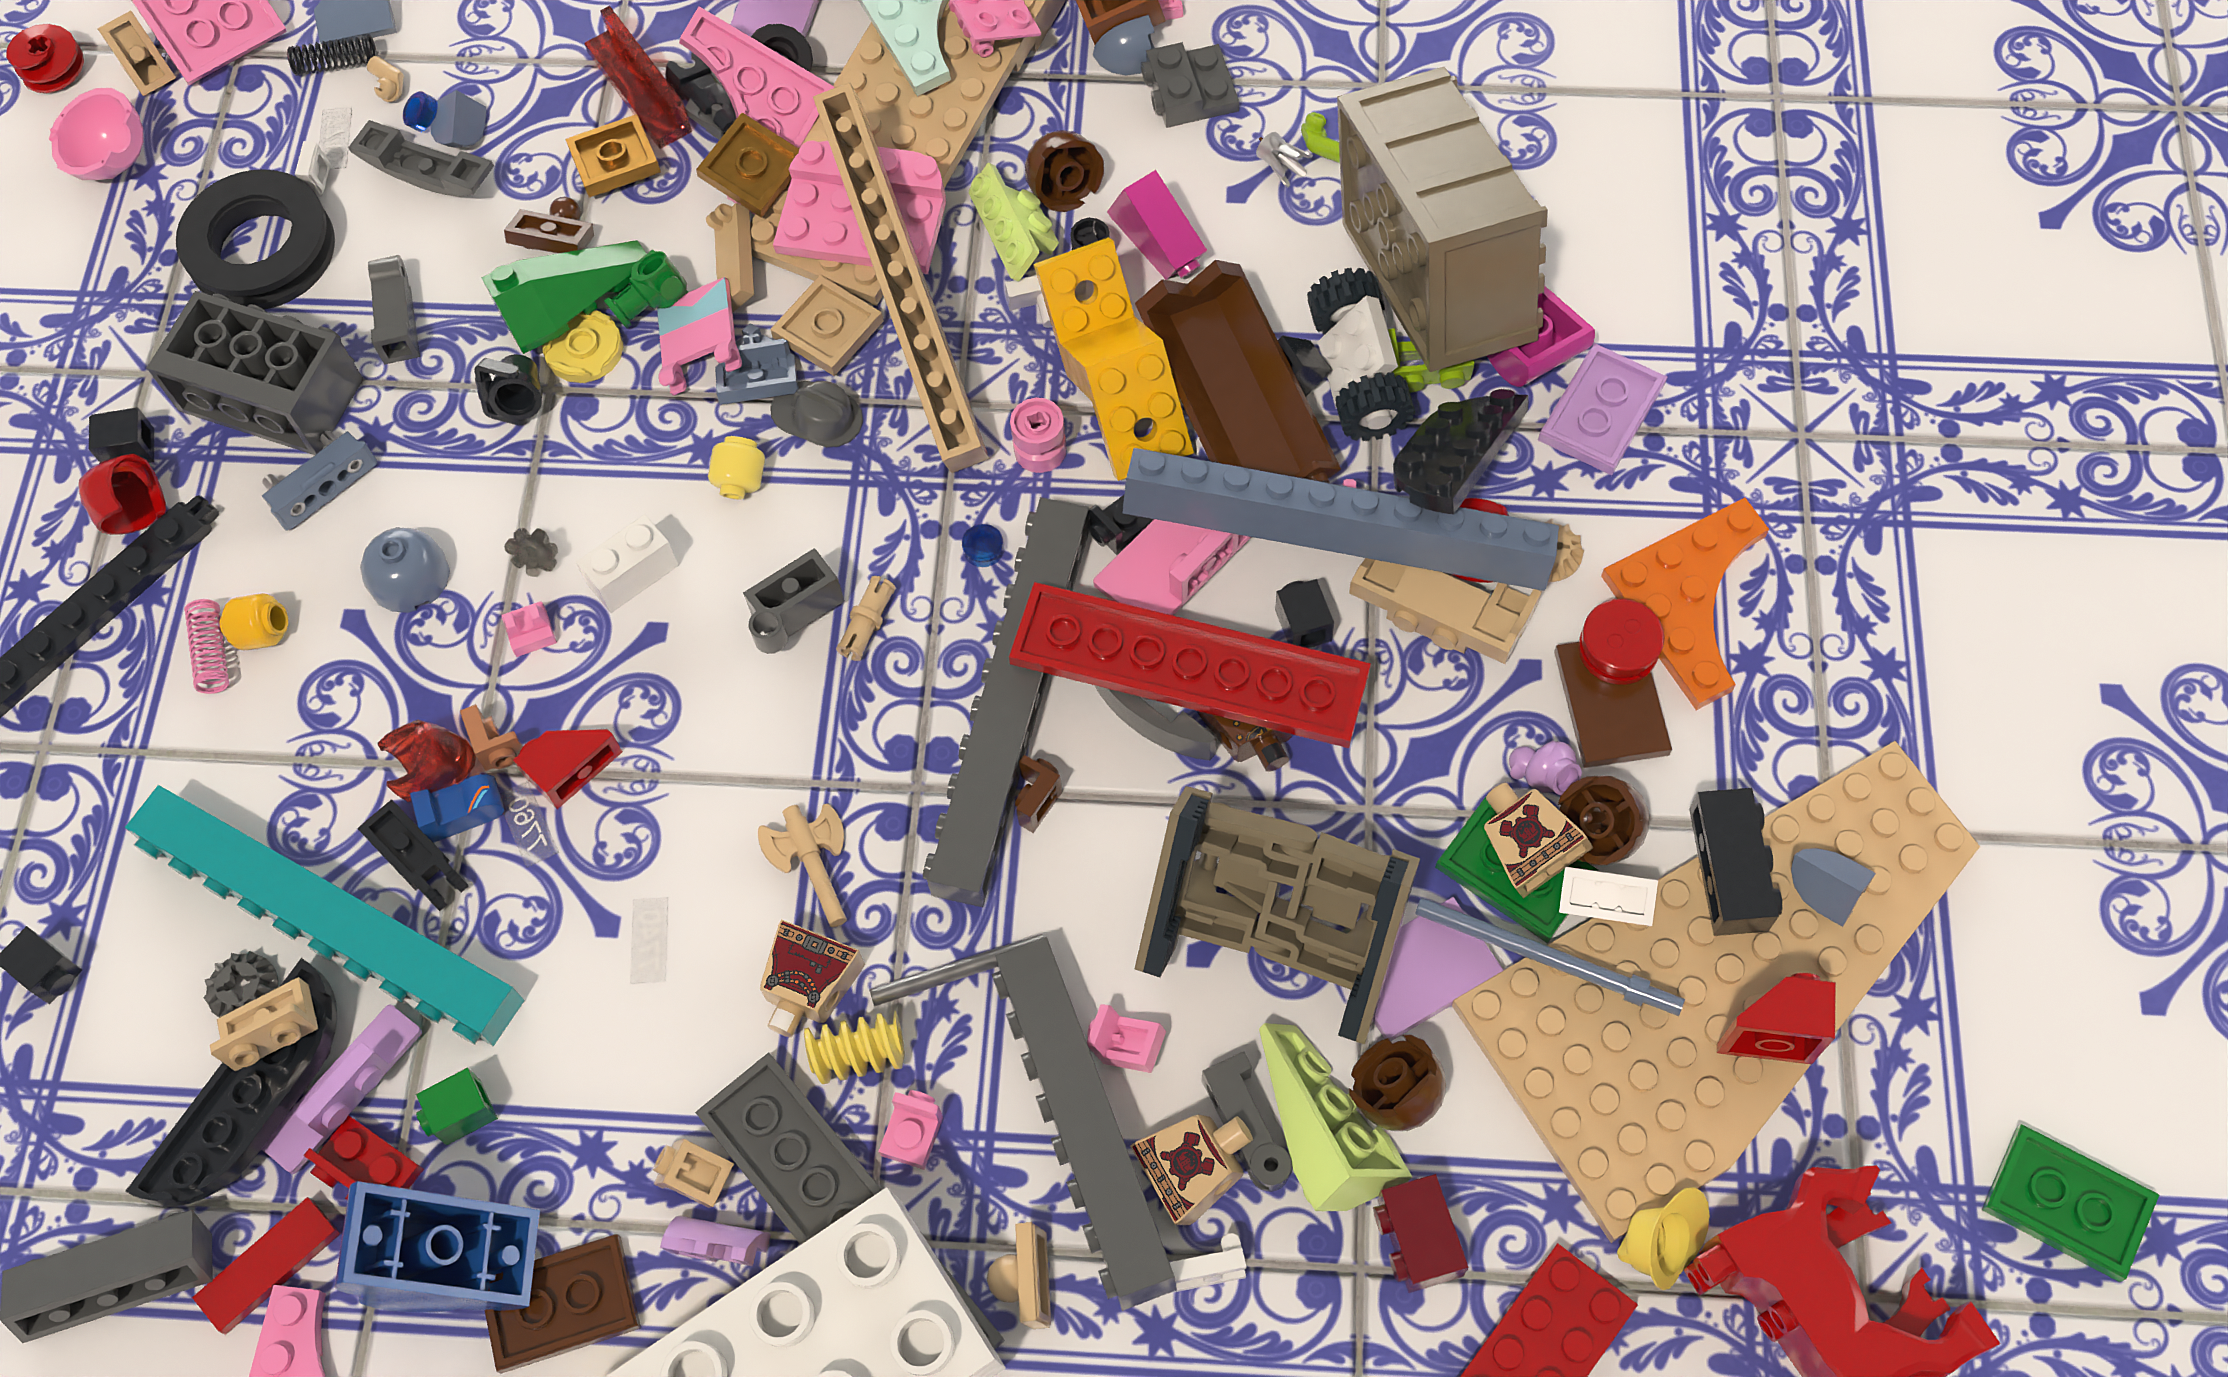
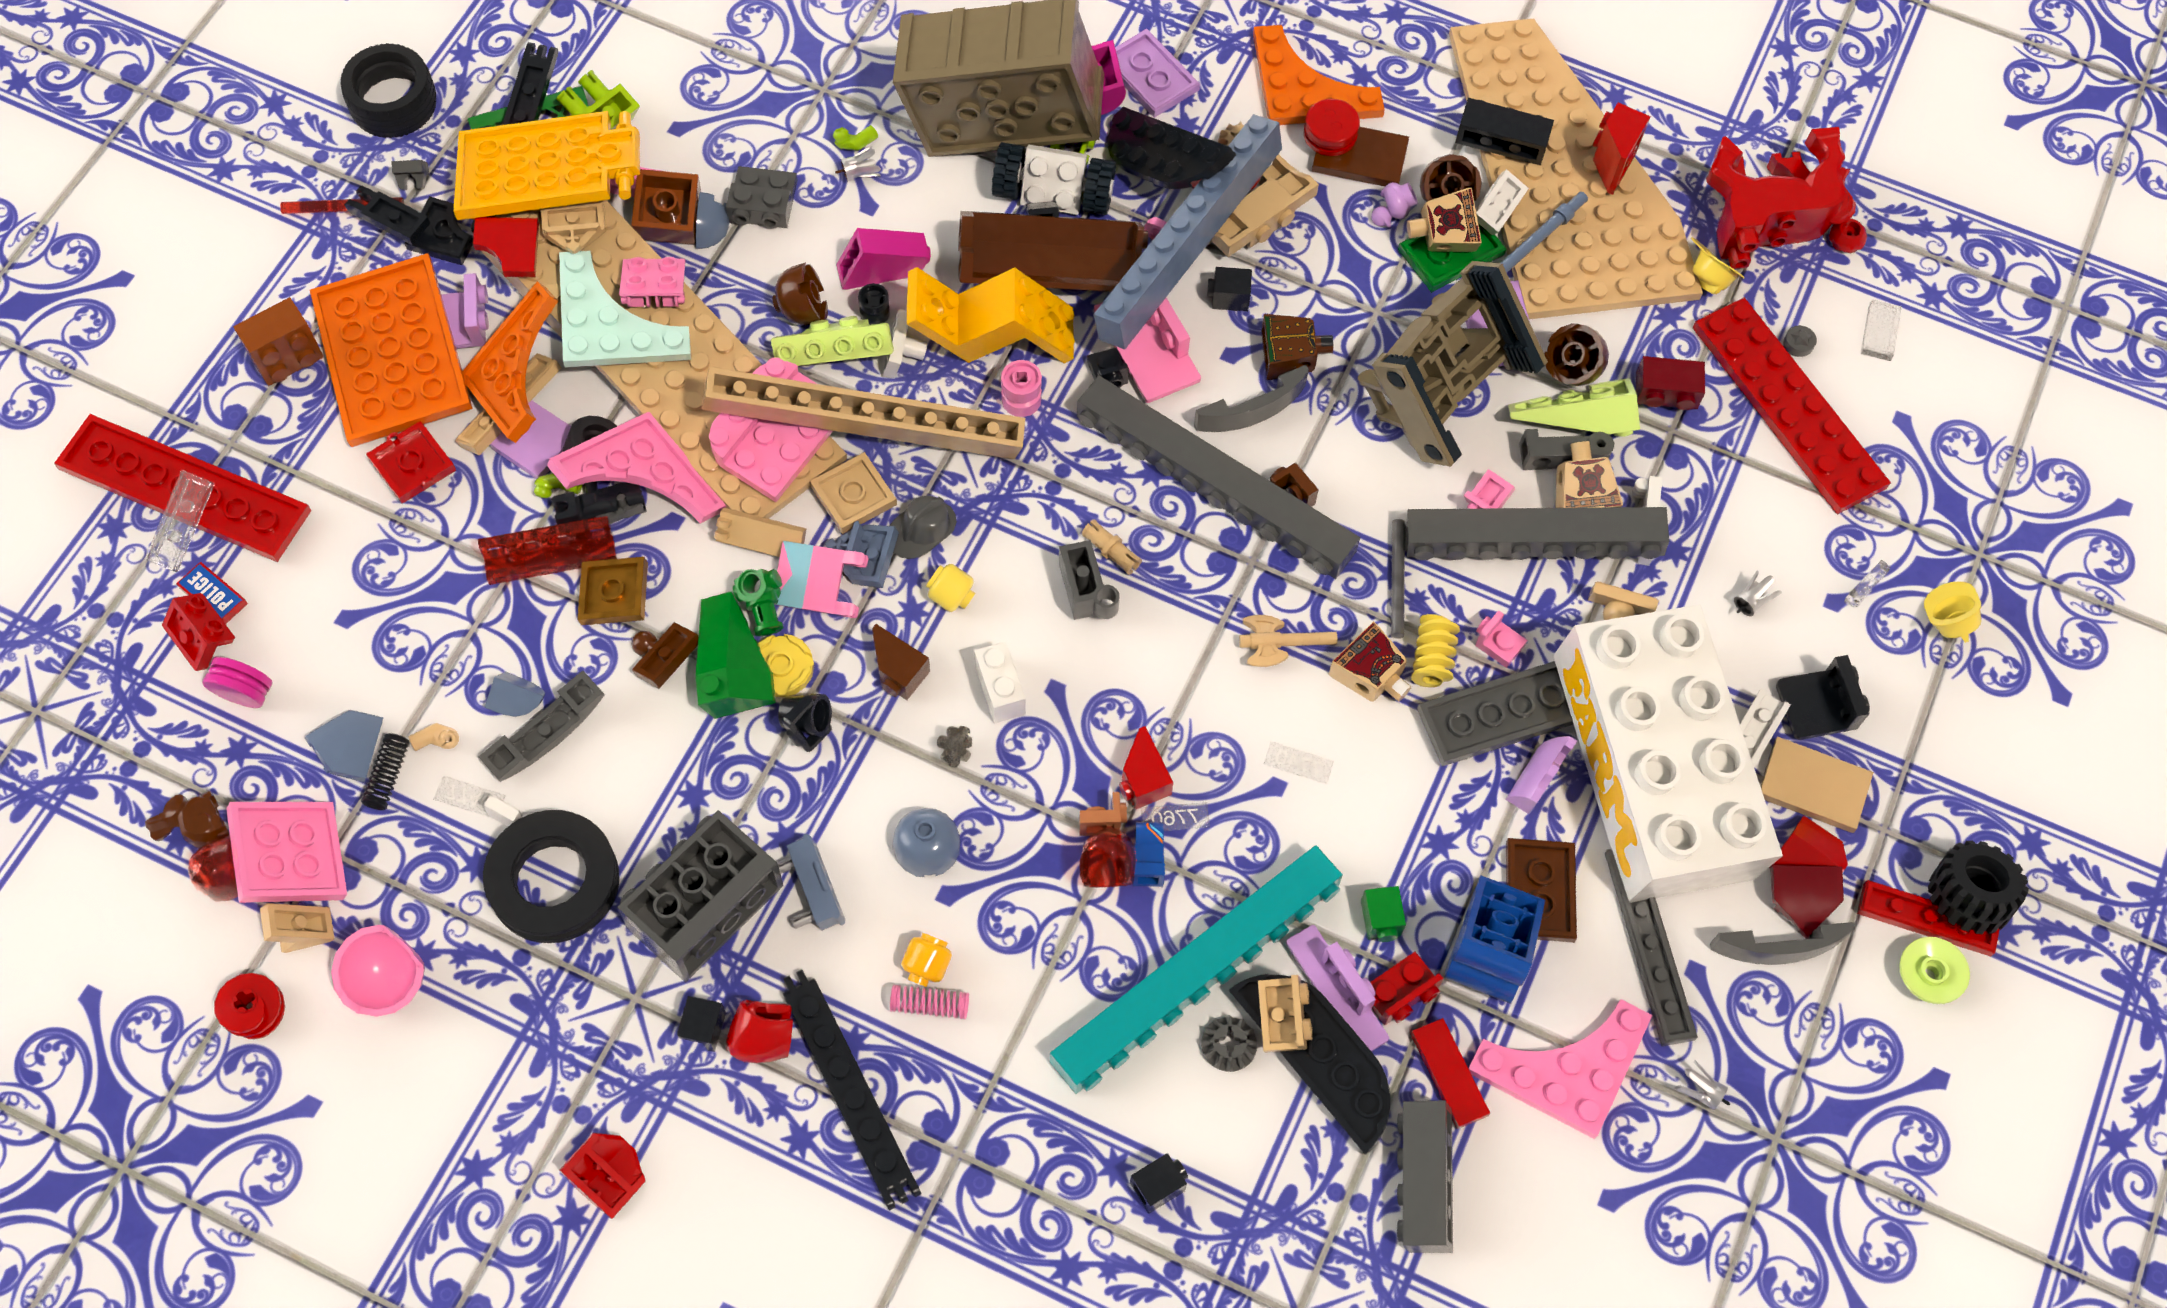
camera: 75 degrees left, 0 degrees up
(392, 310) = (677, 789): dark grey leg -> none
(409, 851) = (1171, 896): black hinge -> none
(420, 111) = (487, 718): clear blue tile -> none
(529, 629) = (1016, 769): bright pink tile -> none
(617, 451) = (899, 664): none -> reddish brown slope
(692, 1171) = (1482, 779): tan bracket -> none
(749, 165) = (696, 486): pearl gold plate -> none
(983, 545) = (1084, 458): clear blue tile -> none
(1191, 664) = (1251, 357): red plate -> none
(1829, 882) = (1537, 91): sand blue brick -> none
(2071, 1203) = (1752, 77): green tile -> none

